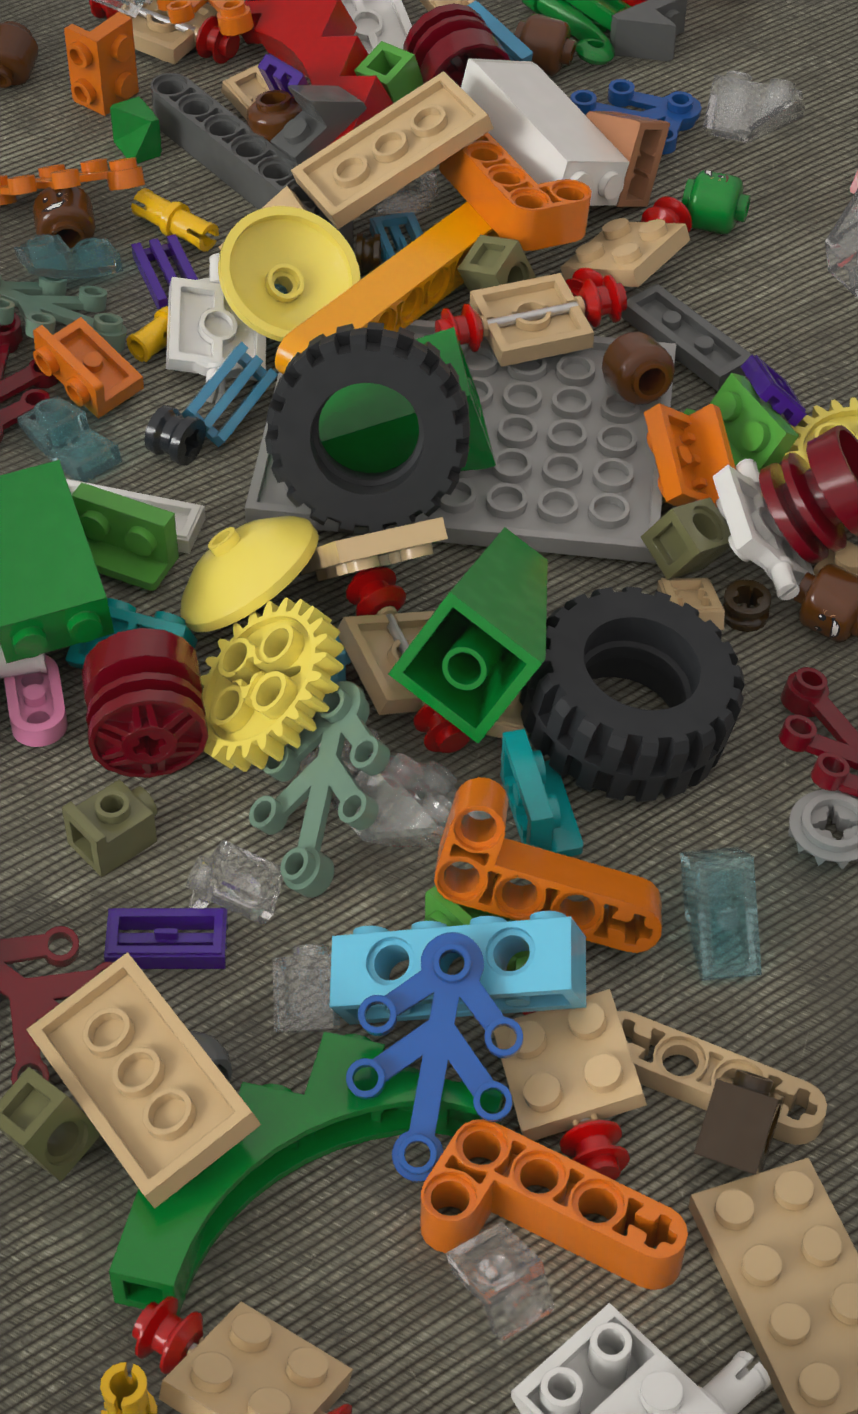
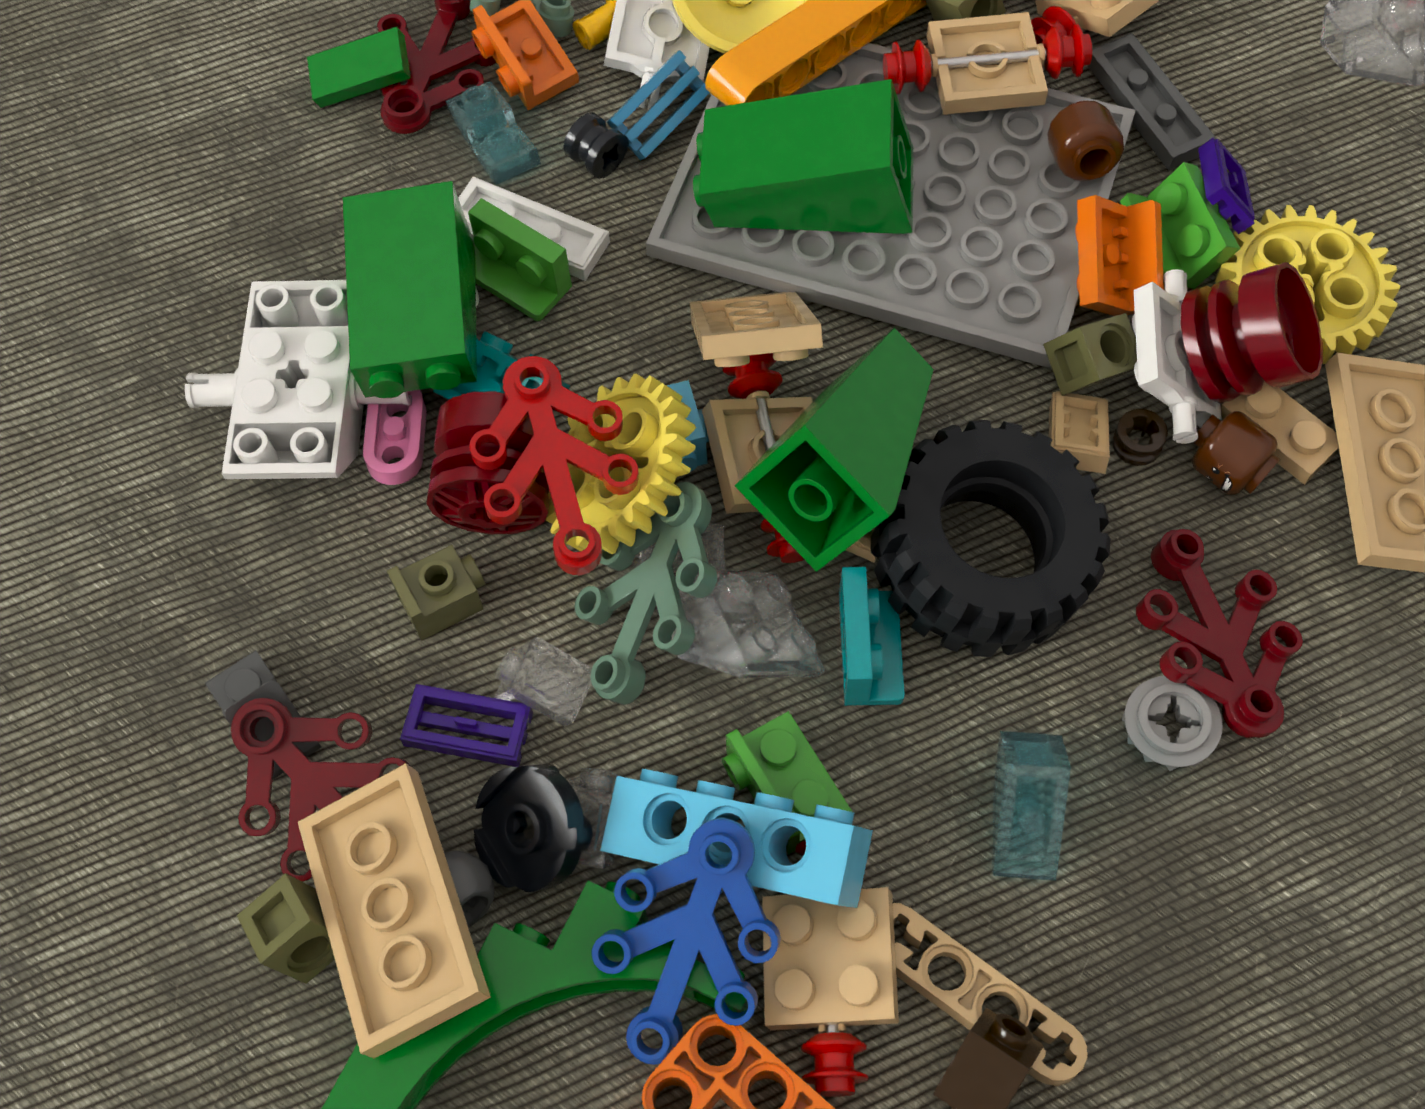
camera: 15 degrees right, 15 degrees up
(213, 669) = (551, 451): none -> red plant
(246, 570) = (627, 325): light yellow dish -> none
(286, 1006) = (558, 822): none -> black plate
(356, 496) = (744, 252): black tyre -> none
(552, 877) = (845, 749): orange beam -> none

